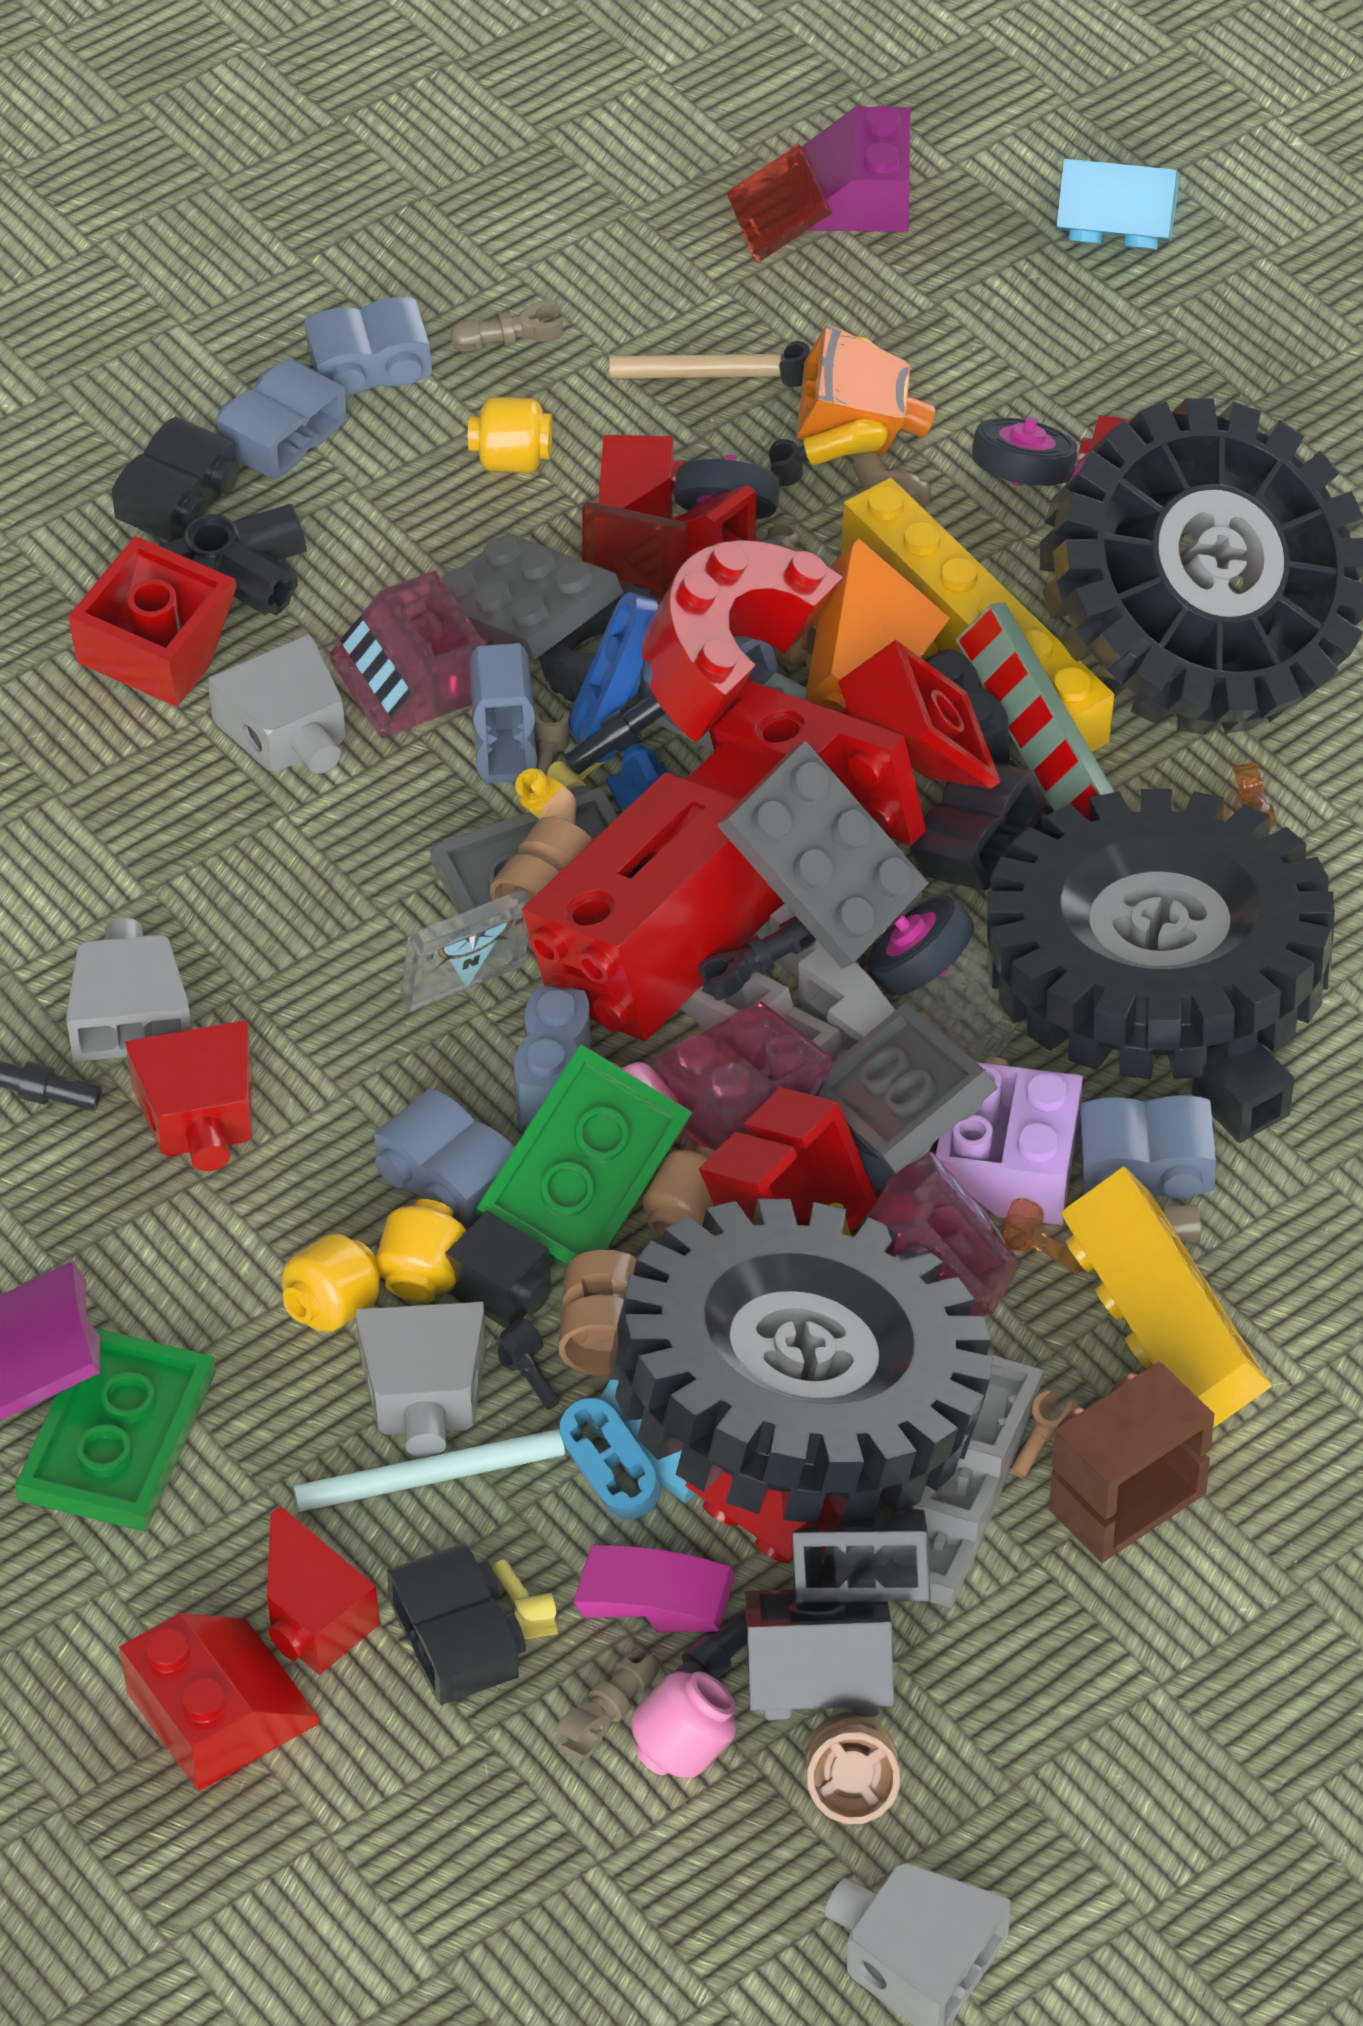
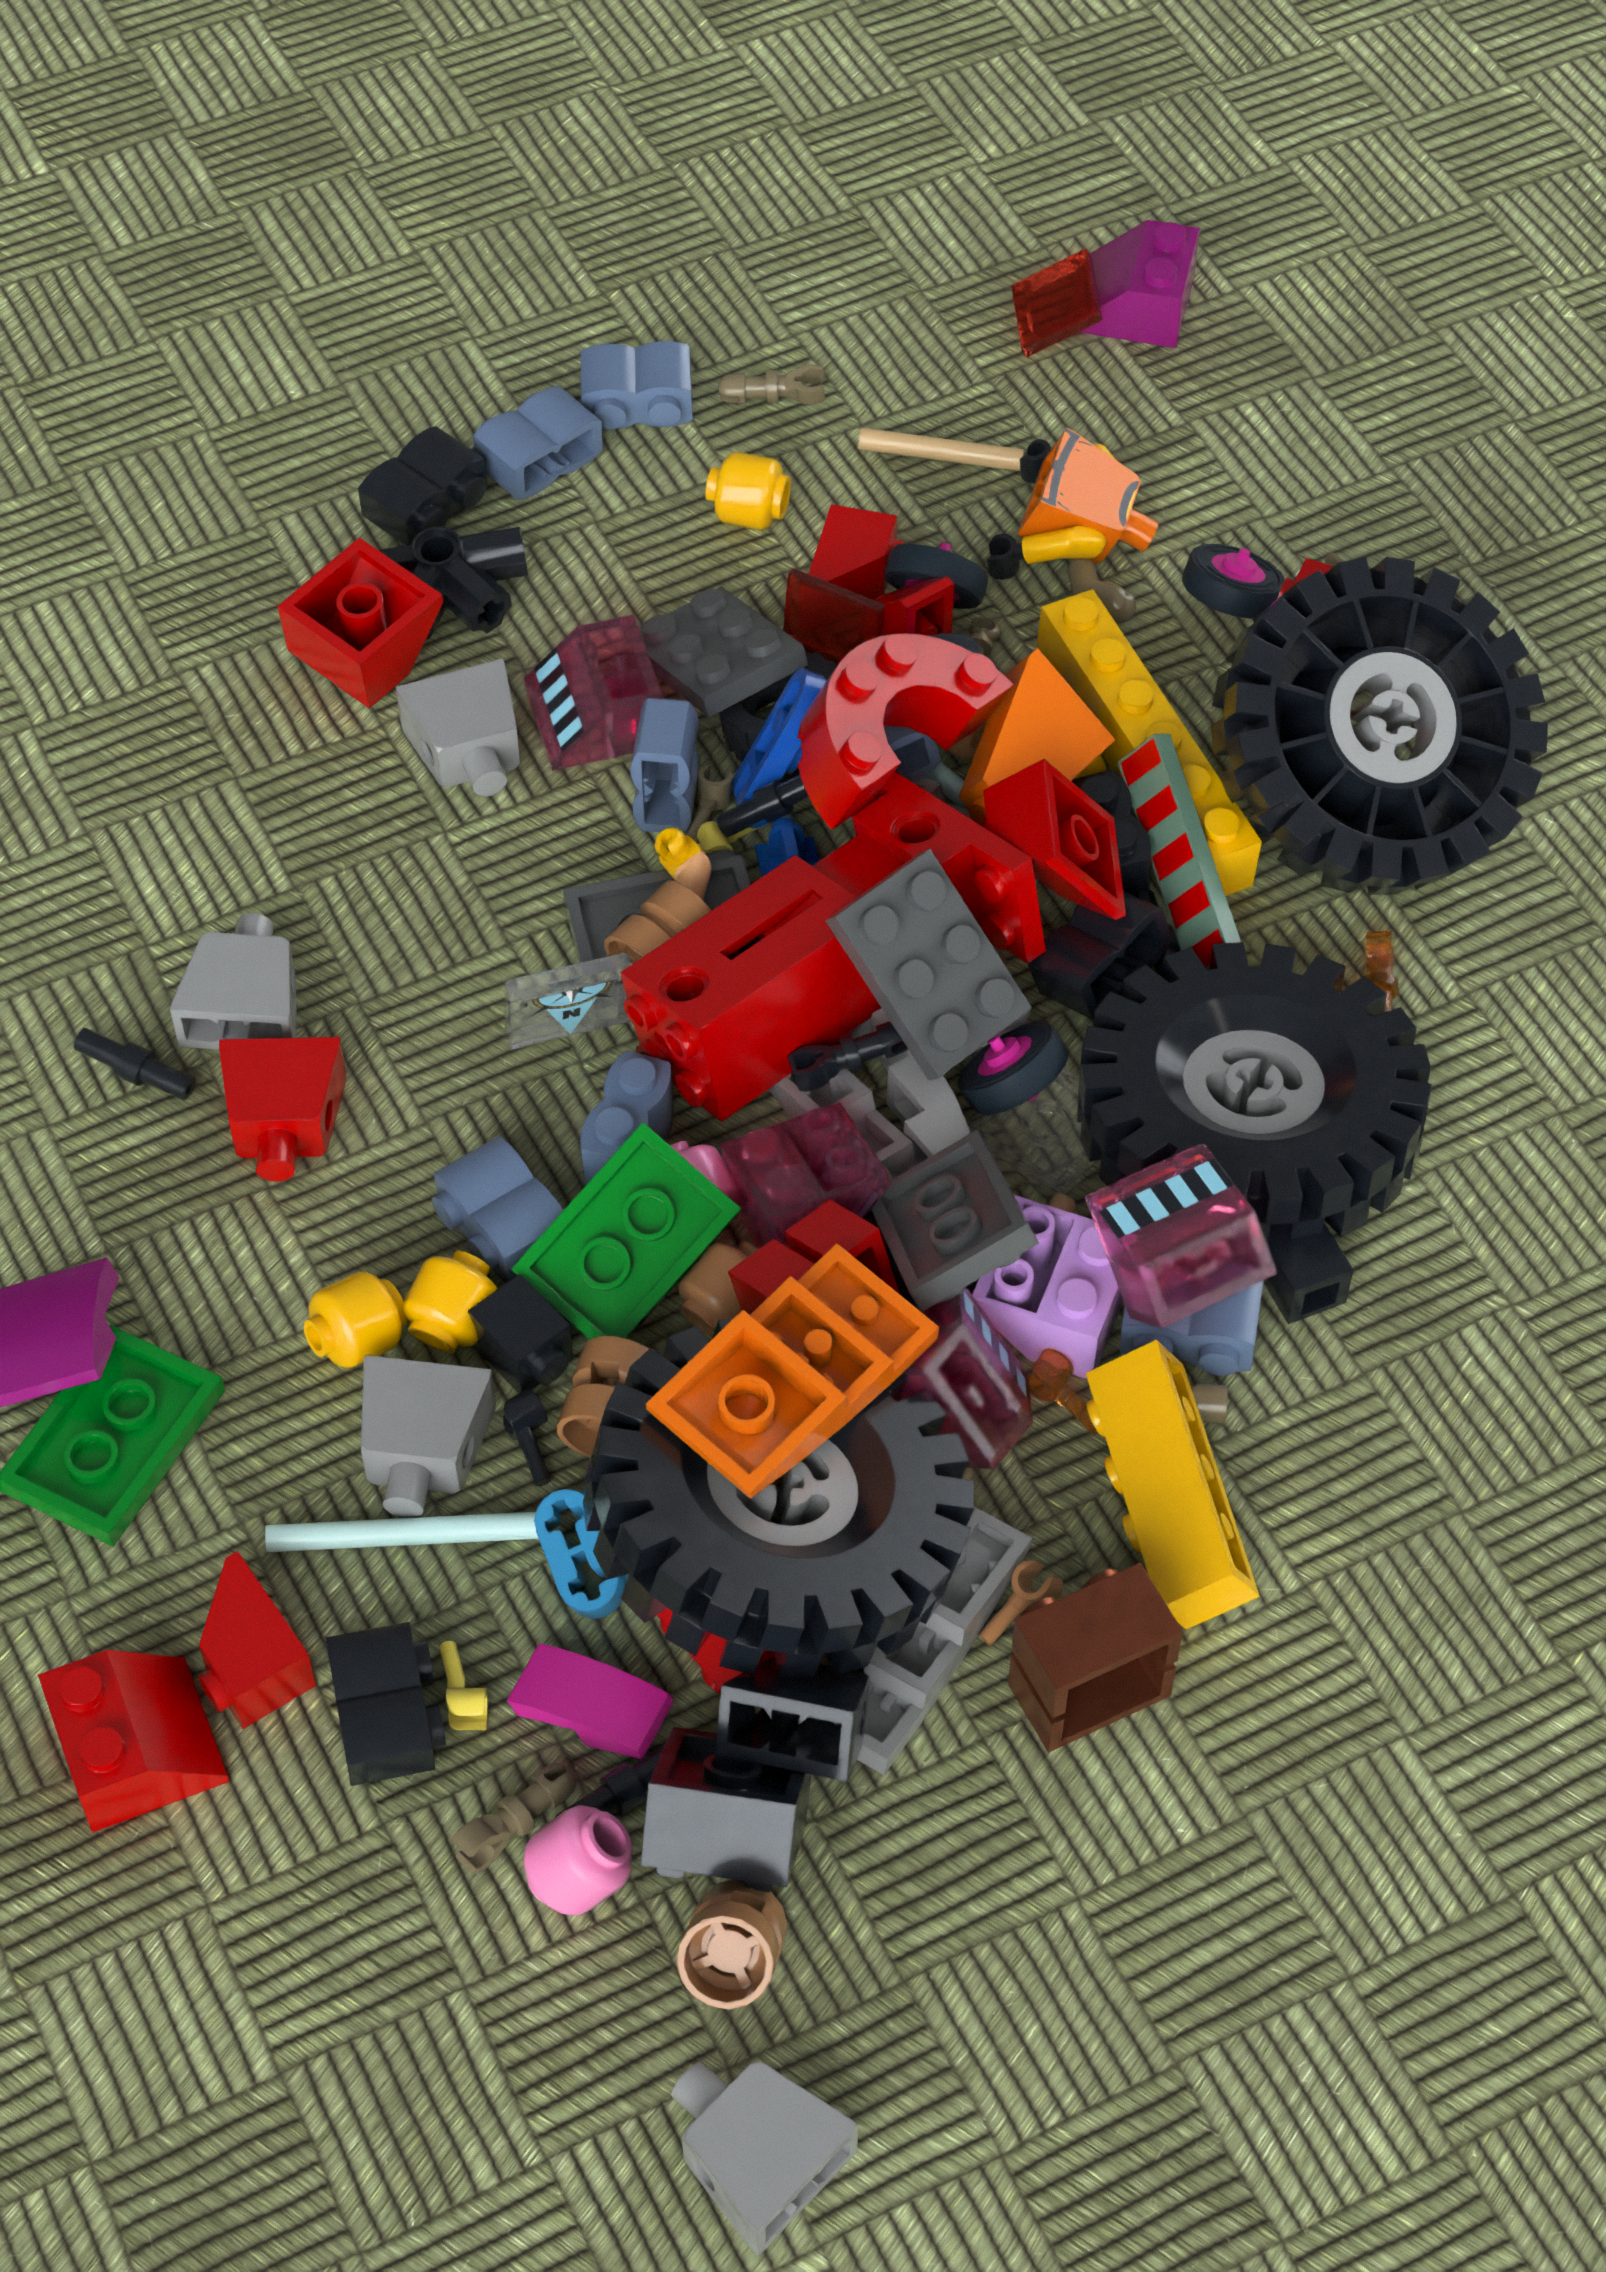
camera: 10 degrees right, 5 degrees up
(794, 1237) = (793, 1371): none -> orange slope
(1117, 202) = (1380, 348): medium azure slope -> none
(1126, 1066) = (1179, 1237): none -> clear pink slope

